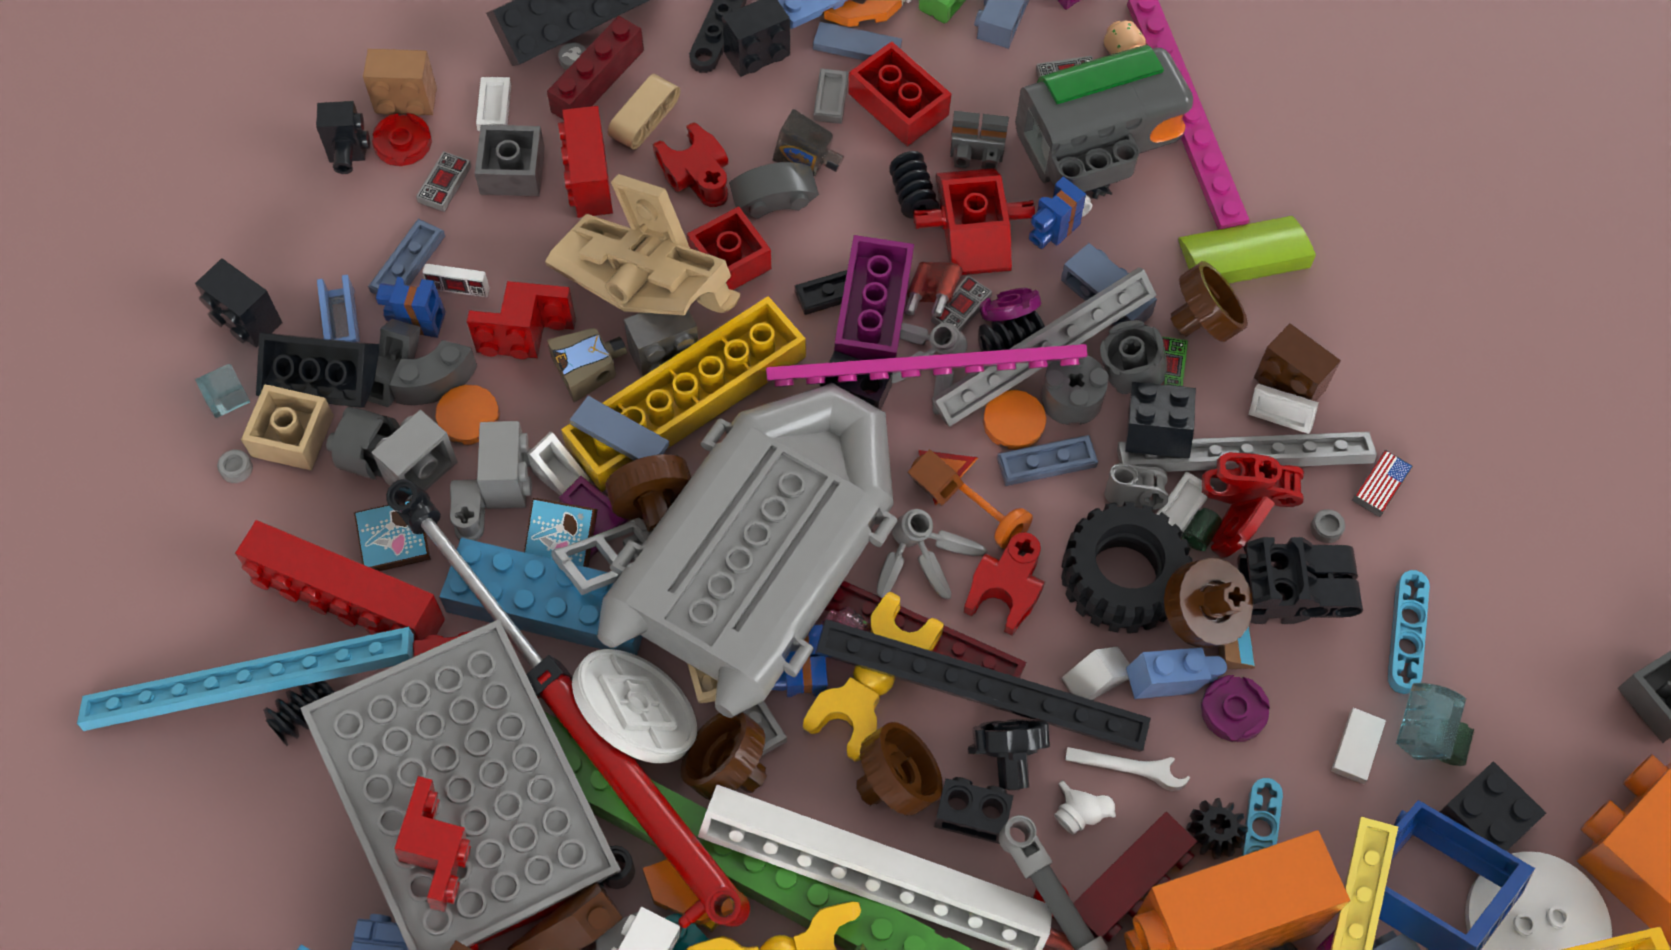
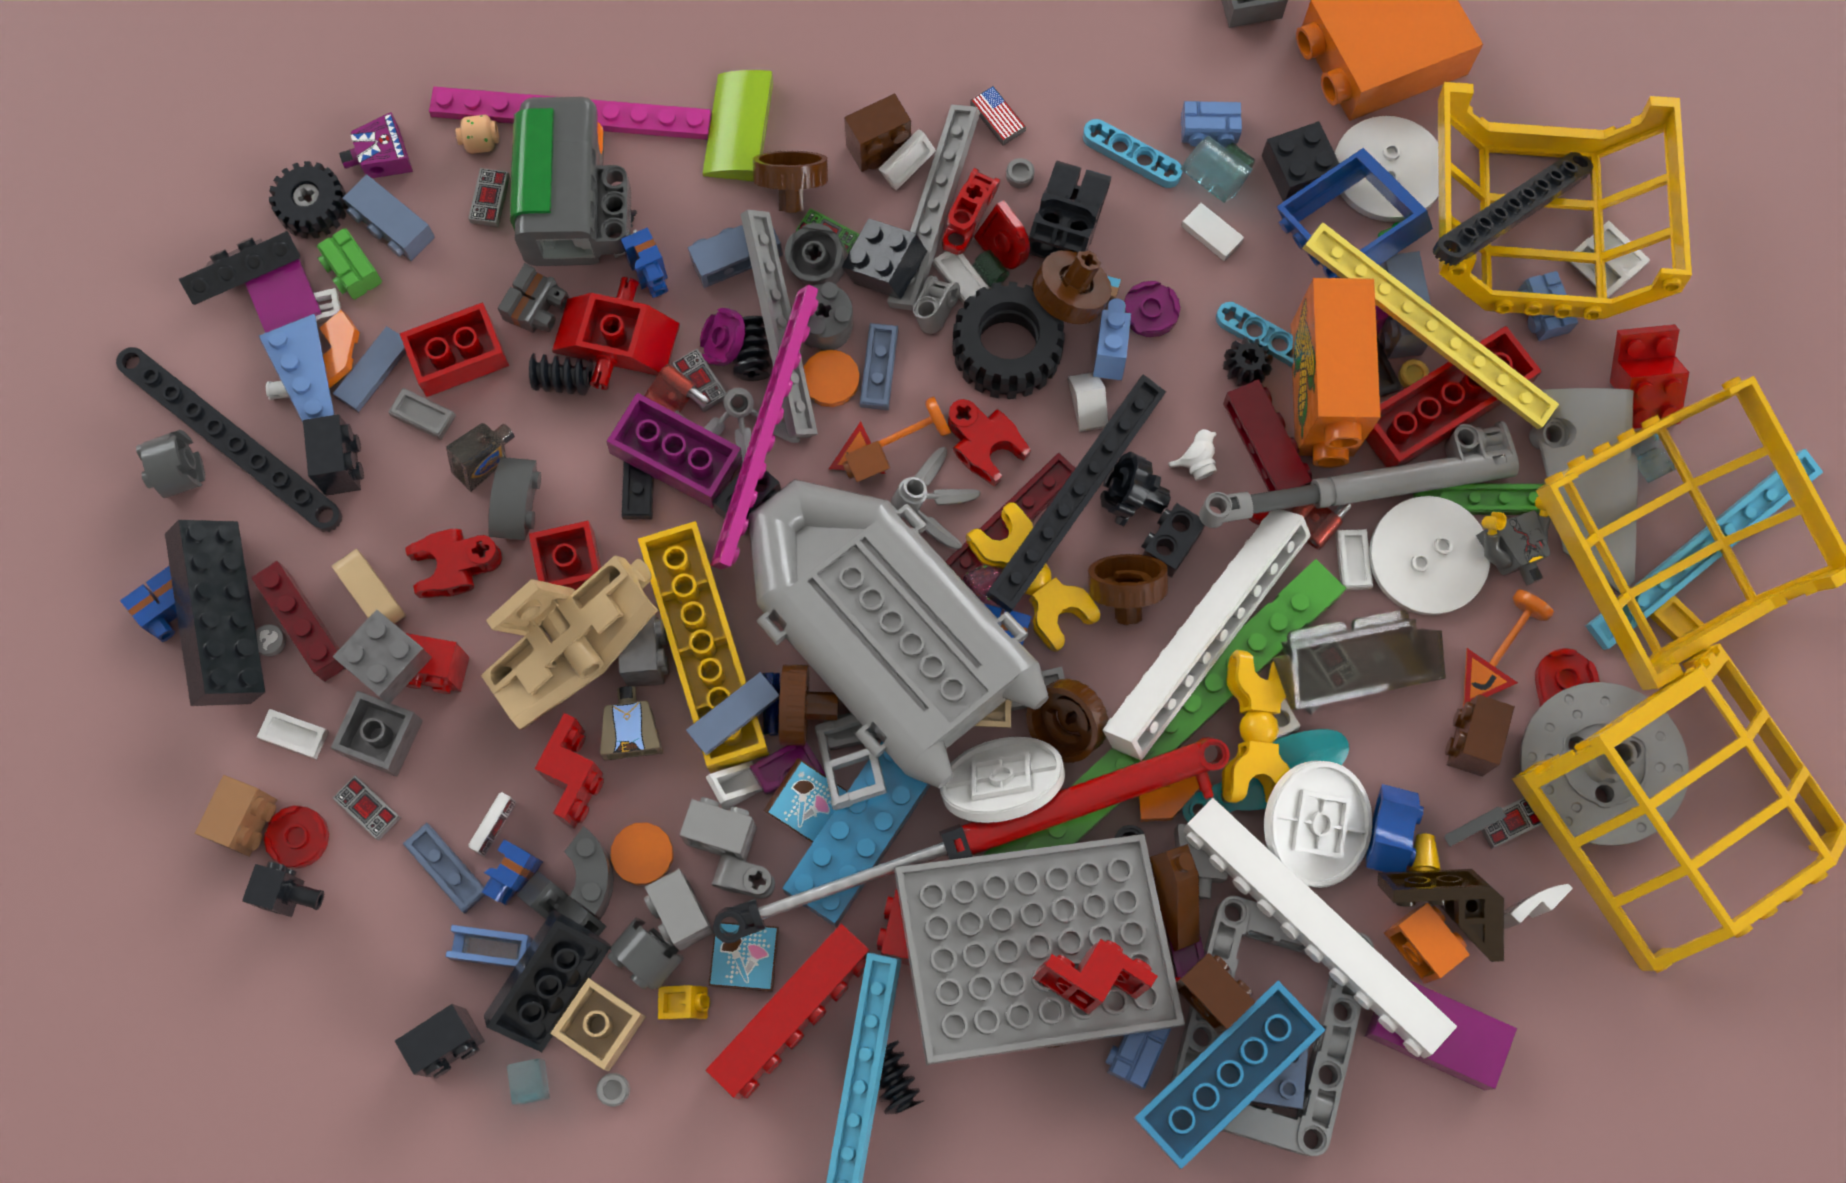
camera: 70 degrees left, 10 degrees up
(331, 497) = (683, 1002): none -> yellow bracket
(567, 122) = (382, 656): none -> flat silver brick
(1154, 770) = (1183, 389): white piece -> none
(1489, 701) = (1213, 119): none -> medium blue brick

